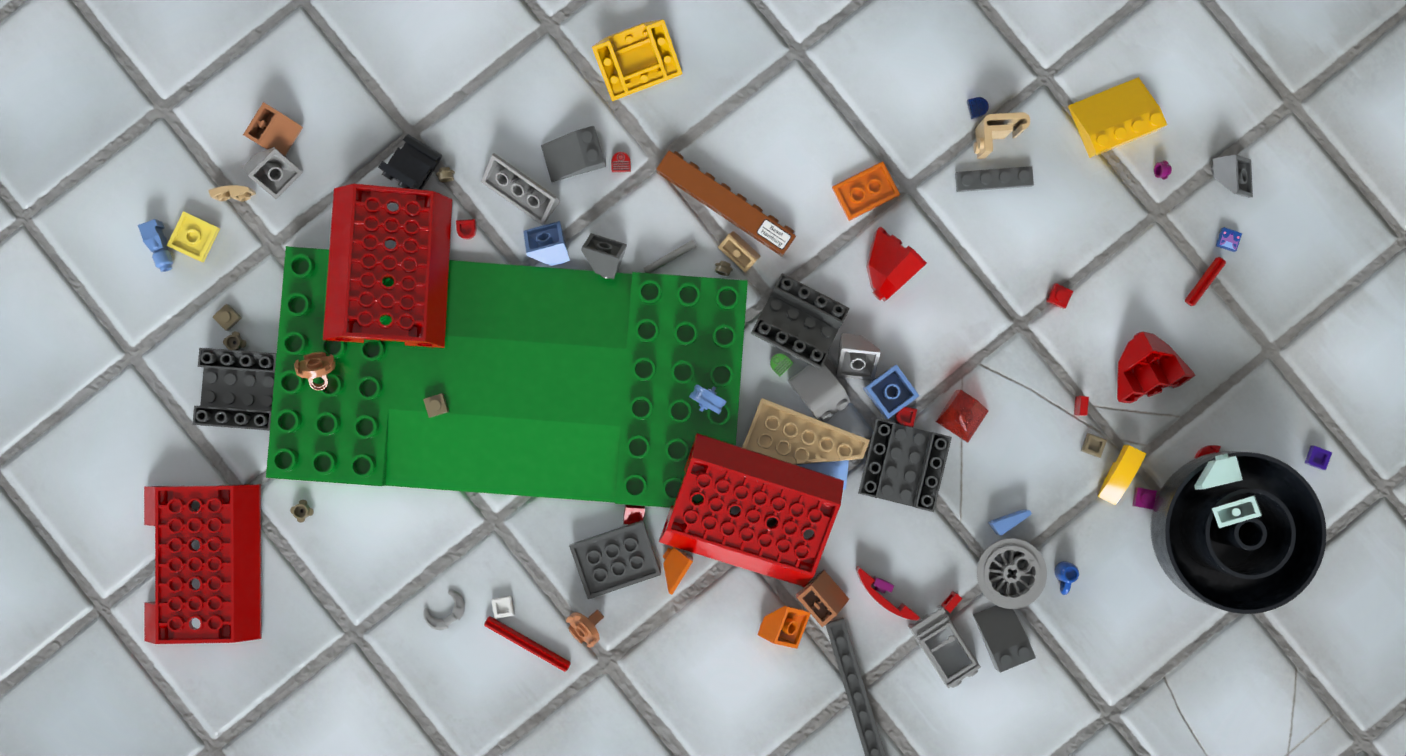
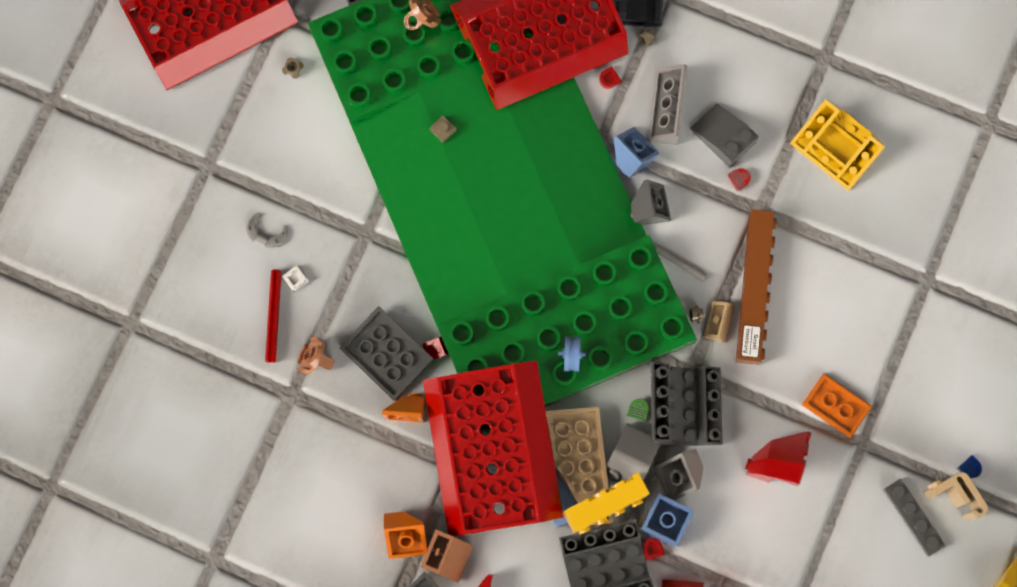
camera: 70 degrees right, 10 degrees down
(853, 438) = (606, 503): none -> yellow wedge

